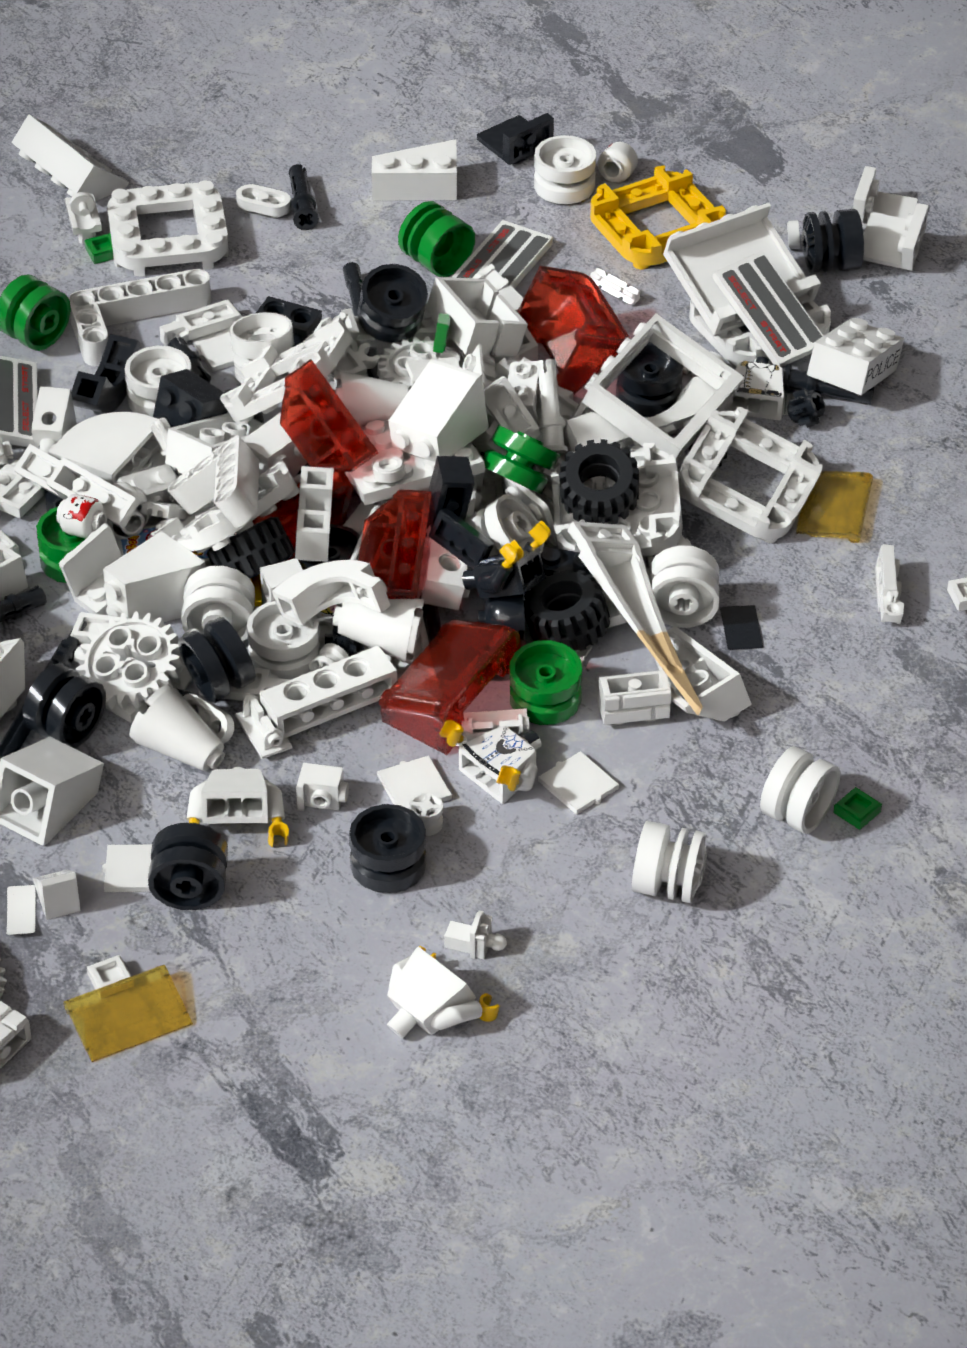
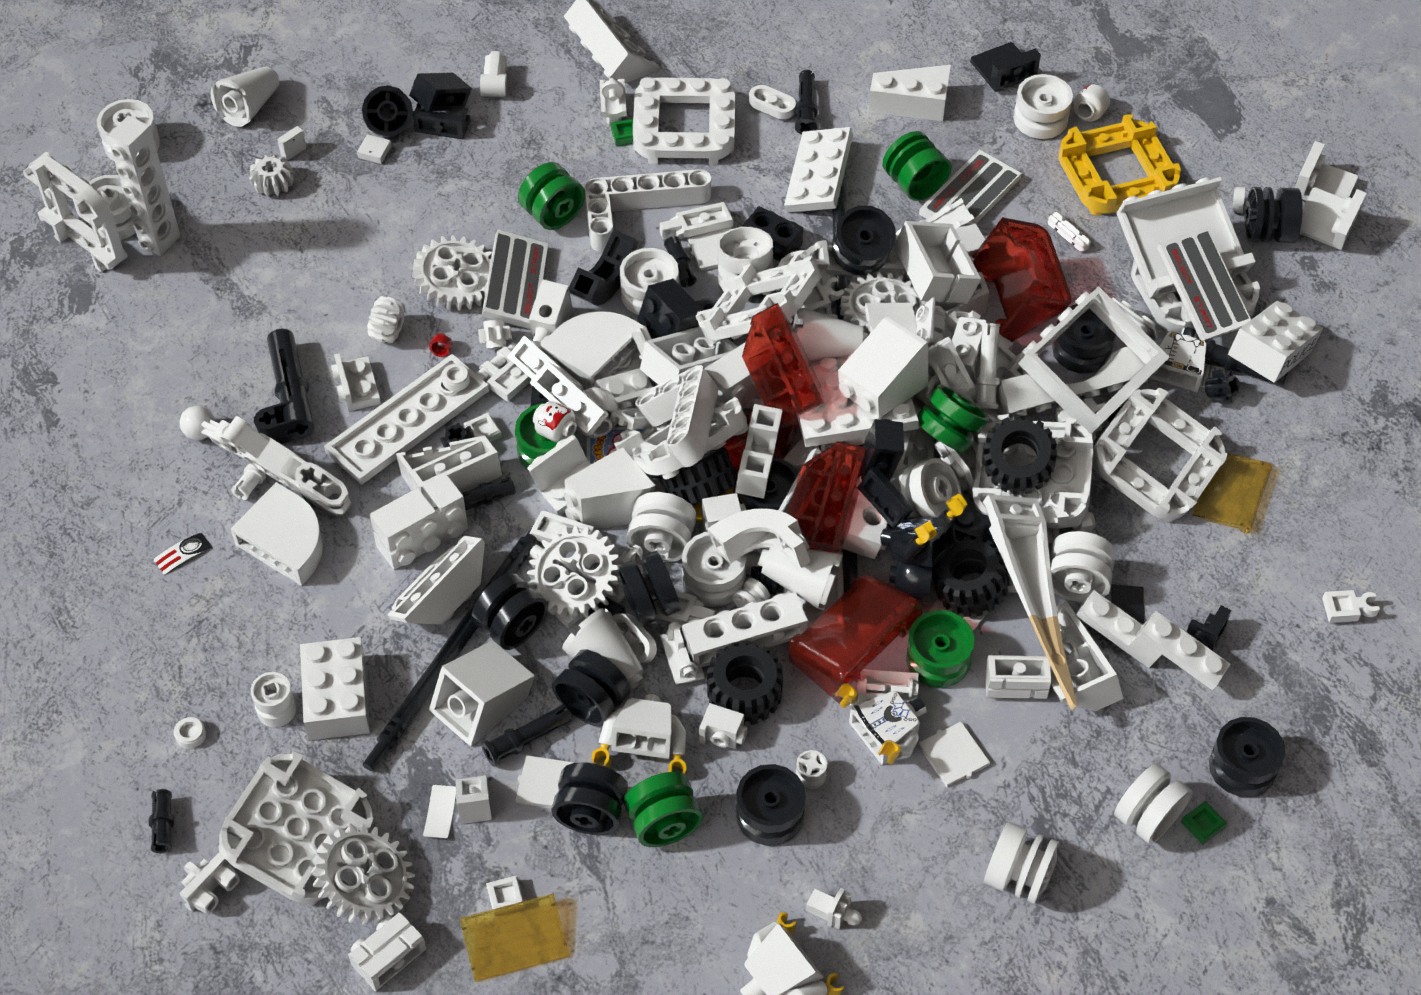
camera: 10 degrees right, 10 degrees up
(92, 830) = (514, 740): none -> black pin
(169, 764) = (591, 687): none -> black wheel
(271, 865) = (663, 809): none -> green wheel
(328, 257) = (819, 170): none -> white plate
(340, 736) = (751, 663): none -> black tyre
(389, 469) = (831, 418): white tile -> none
(413, 778) = (806, 731): white piece -> none
(441, 333) = (902, 276): green tile -> none
(772, 644) = (1152, 639): none -> white bracket
(833, 633) = (1212, 629): none -> black bracket
(887, 587) = (1267, 589): white hinge -> none
(891, 737) = (1246, 756): none -> black wheel

